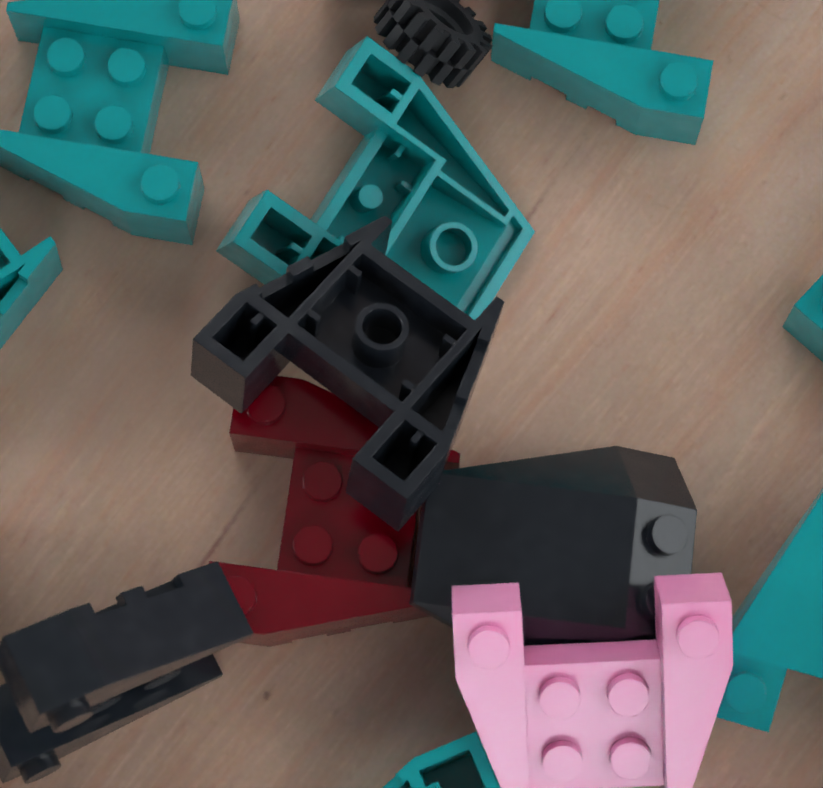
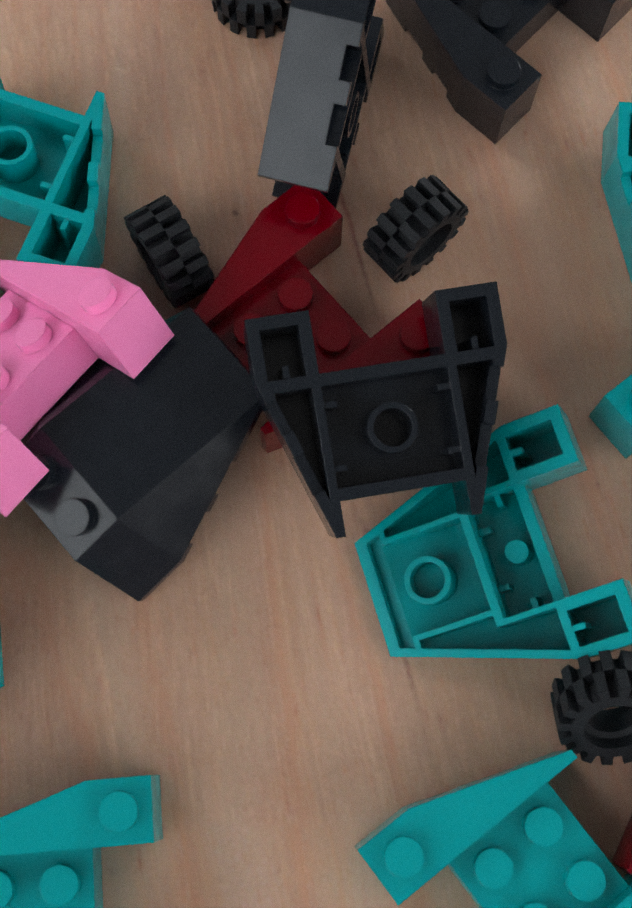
camera: 130 degrees right, 0 degrees up
(160, 498) = (415, 228): none -> black tyre
(368, 688) = (170, 251): none -> black tyre

